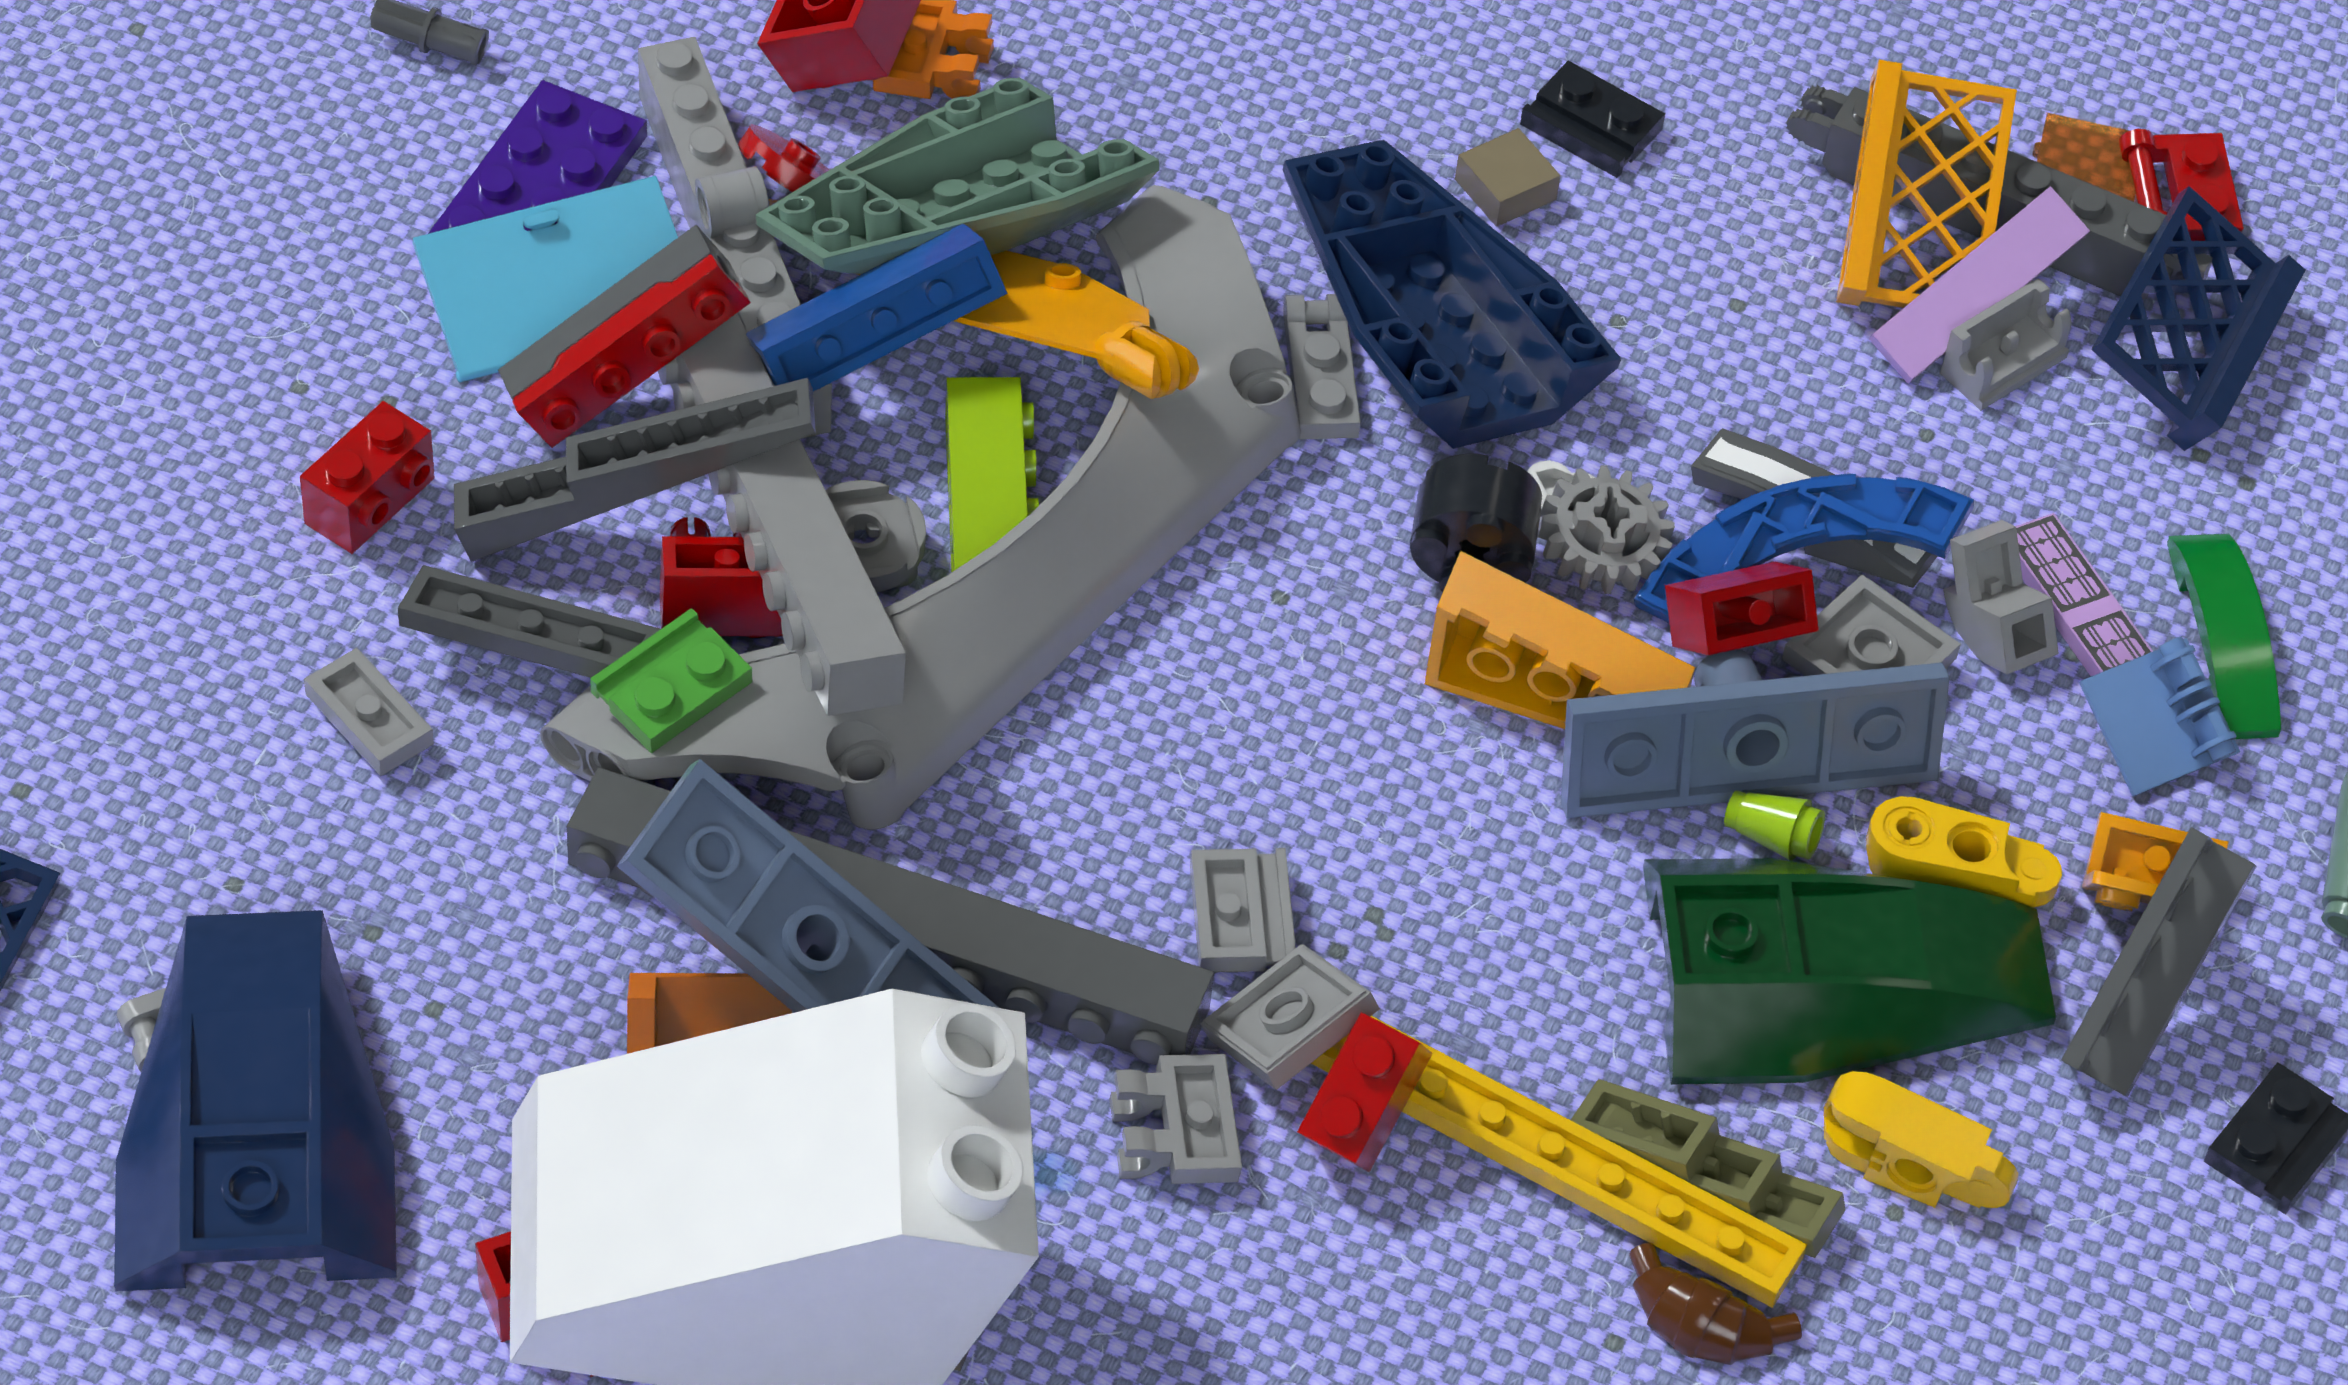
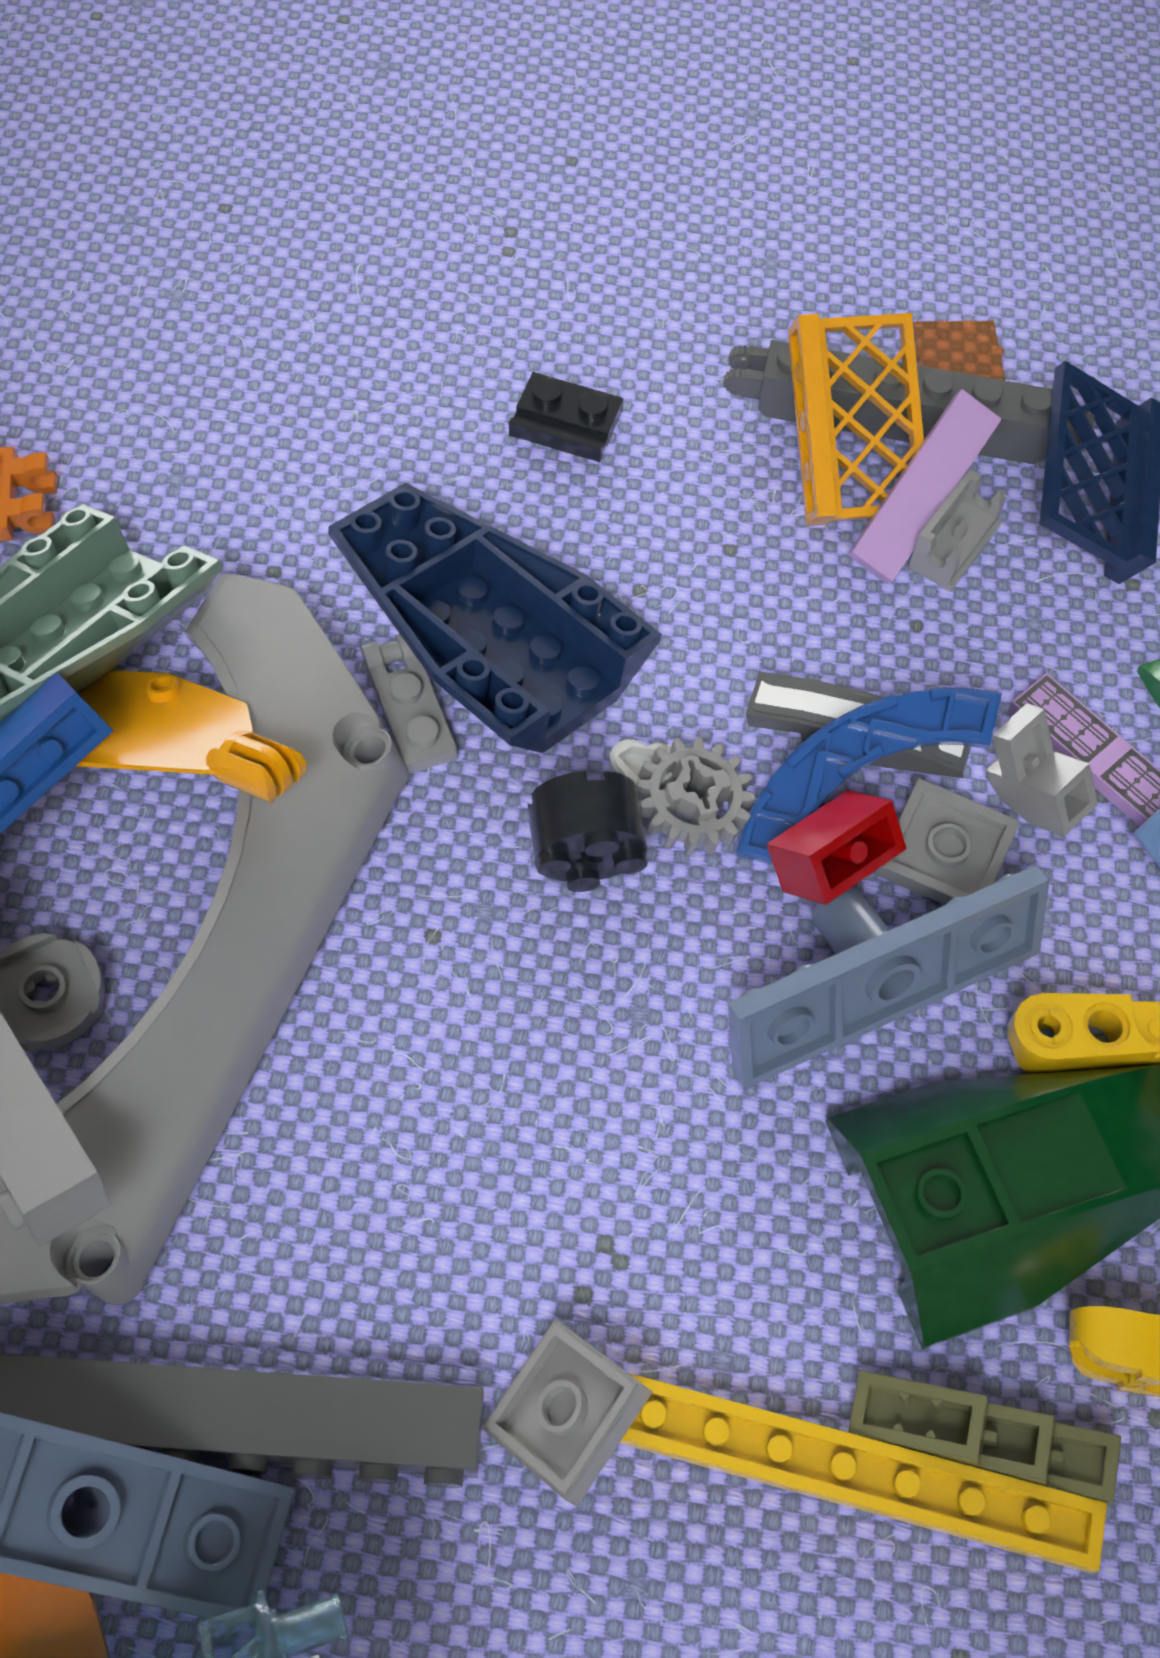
camera: 15 degrees left, 10 degrees up
(986, 462) = (142, 895): lime brick -> none
(1197, 1118) = (508, 1549): light grey plate -> none
(1241, 909) = (487, 1289): light grey plate -> none
(1365, 1092) = (662, 1484): red brick -> none
(1507, 177) = (513, 486): dark tan piece -> none
(1532, 651) = (688, 942): light orange wedge -> none
(1704, 1316) = (1034, 1610): reddish brown piece -> none
(1777, 822) = (926, 1043): lime cone -> none
(2188, 161) = (1041, 340): red plate -> none

